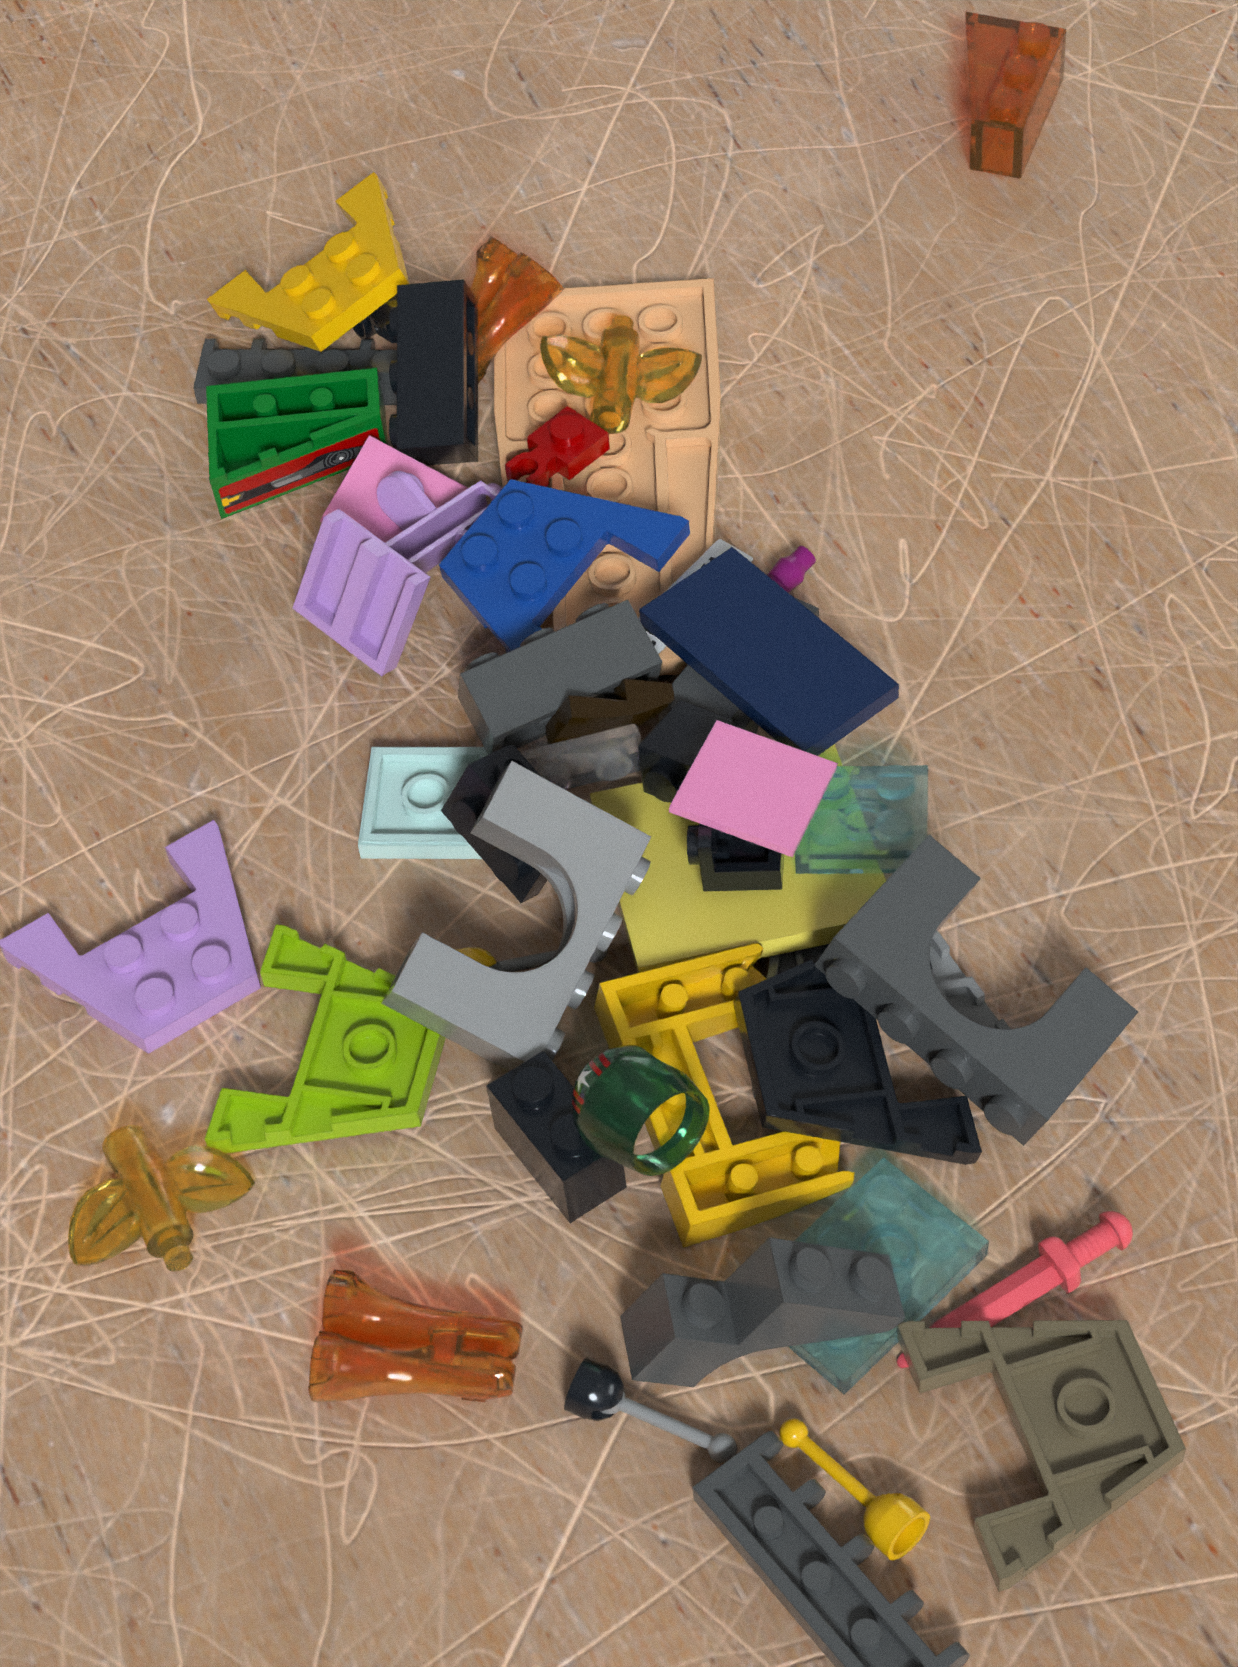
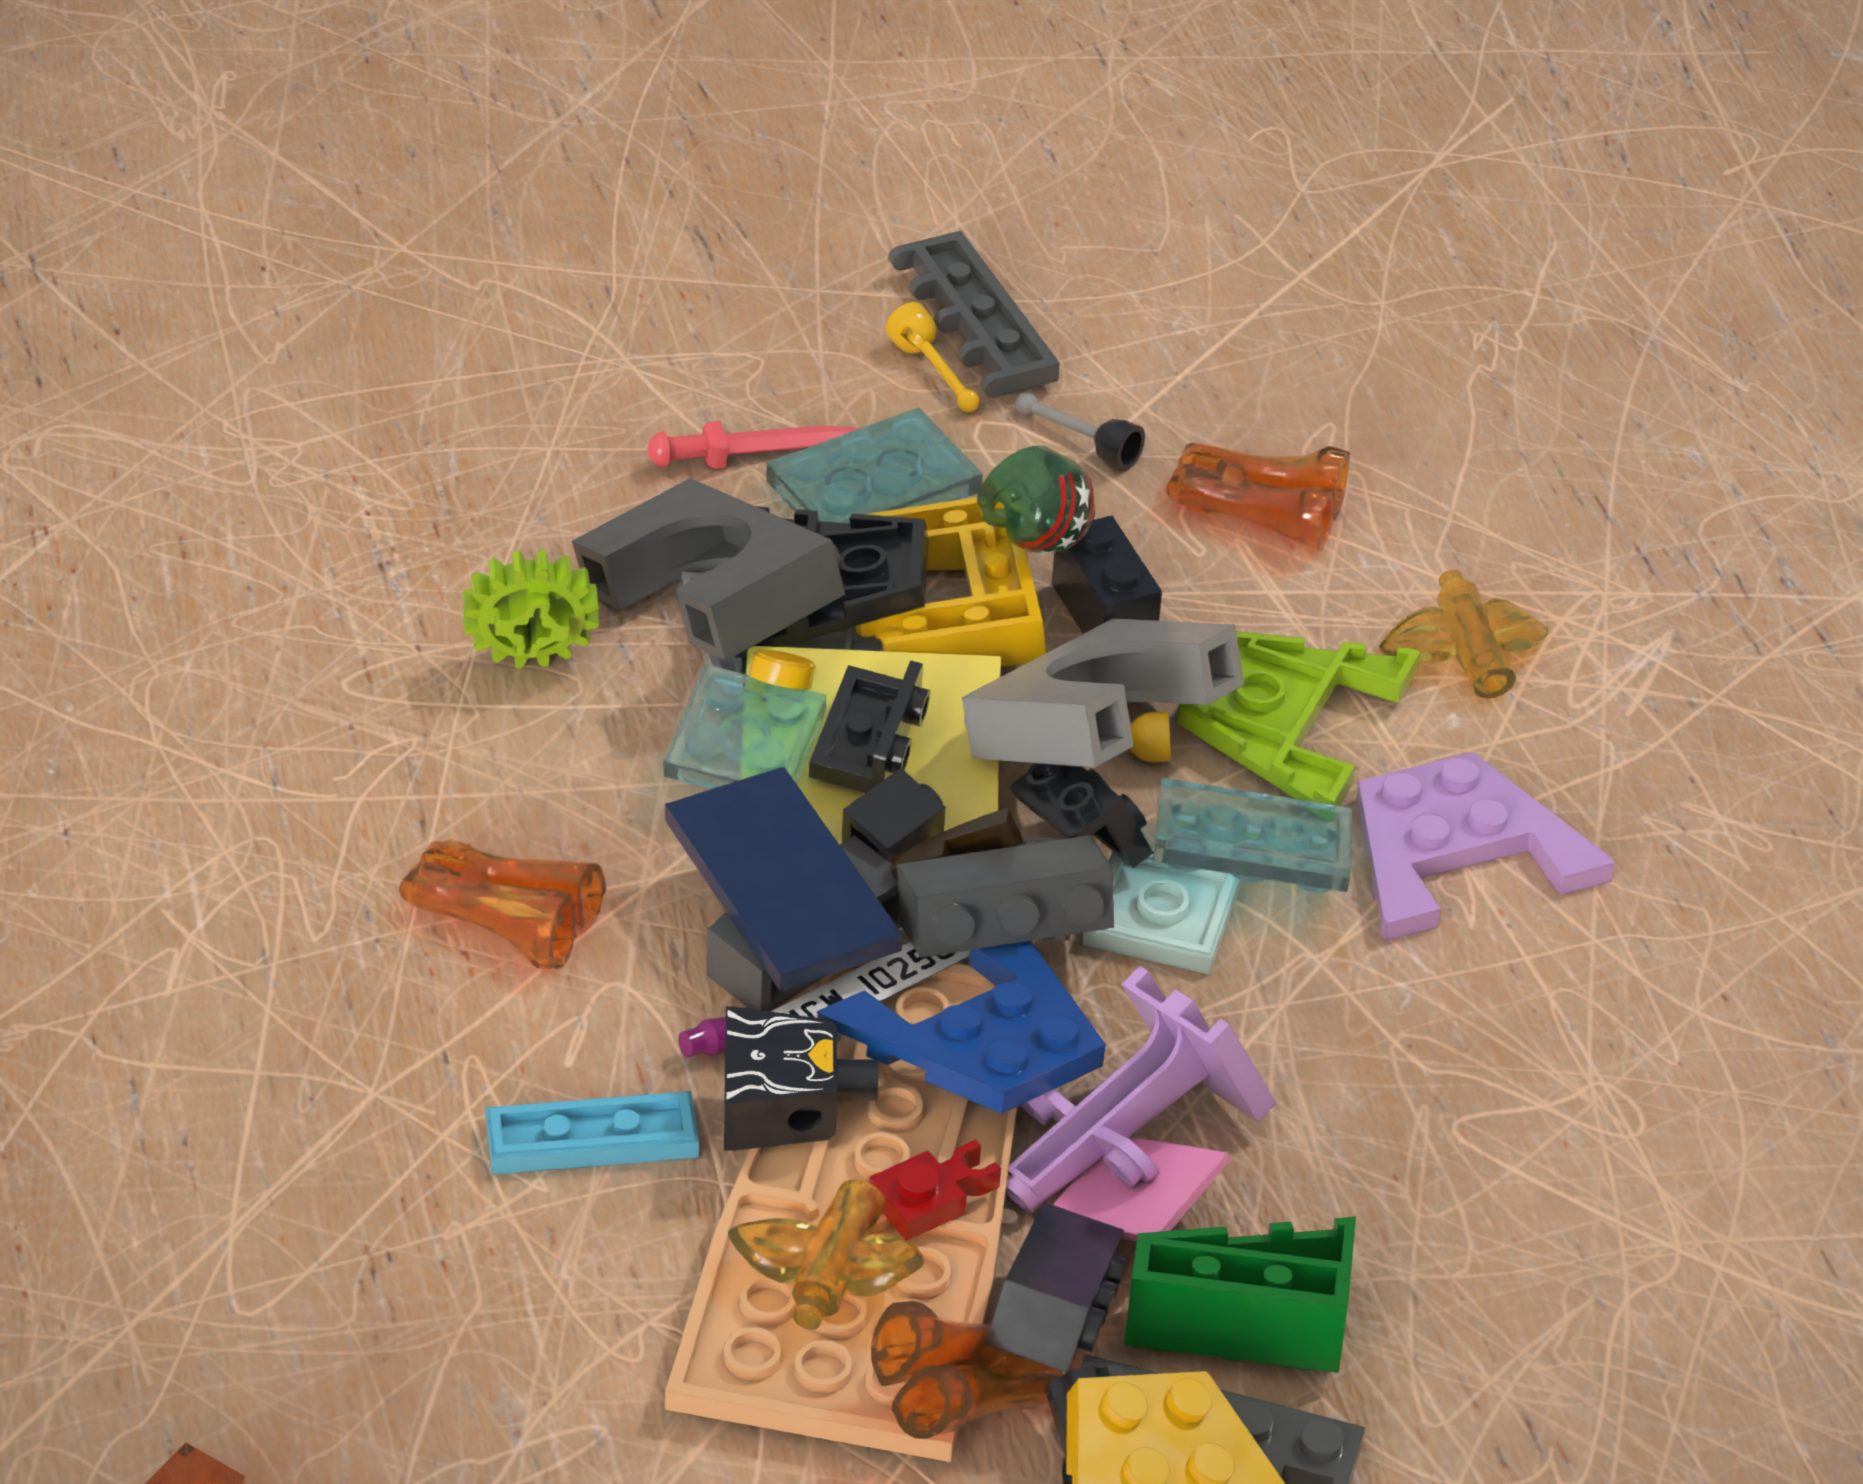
camera: 175 degrees left, 10 degrees down
(349, 858) = (1253, 836): none -> clear light blue plate
(705, 479) = (786, 1079): none -> black torso
(753, 788) = (851, 706): bright pink piece -> none
(774, 1300) = (955, 413): dark grey arch -> none
(845, 860) = (782, 669): none -> yellow tile
(855, 477) = (591, 1132): none -> medium azure tile
(1008, 638) = (522, 900): none -> clear orange piece
(1082, 1416) = (747, 358): dark tan wing -> none
(1134, 899) = (530, 608): none -> lime gear

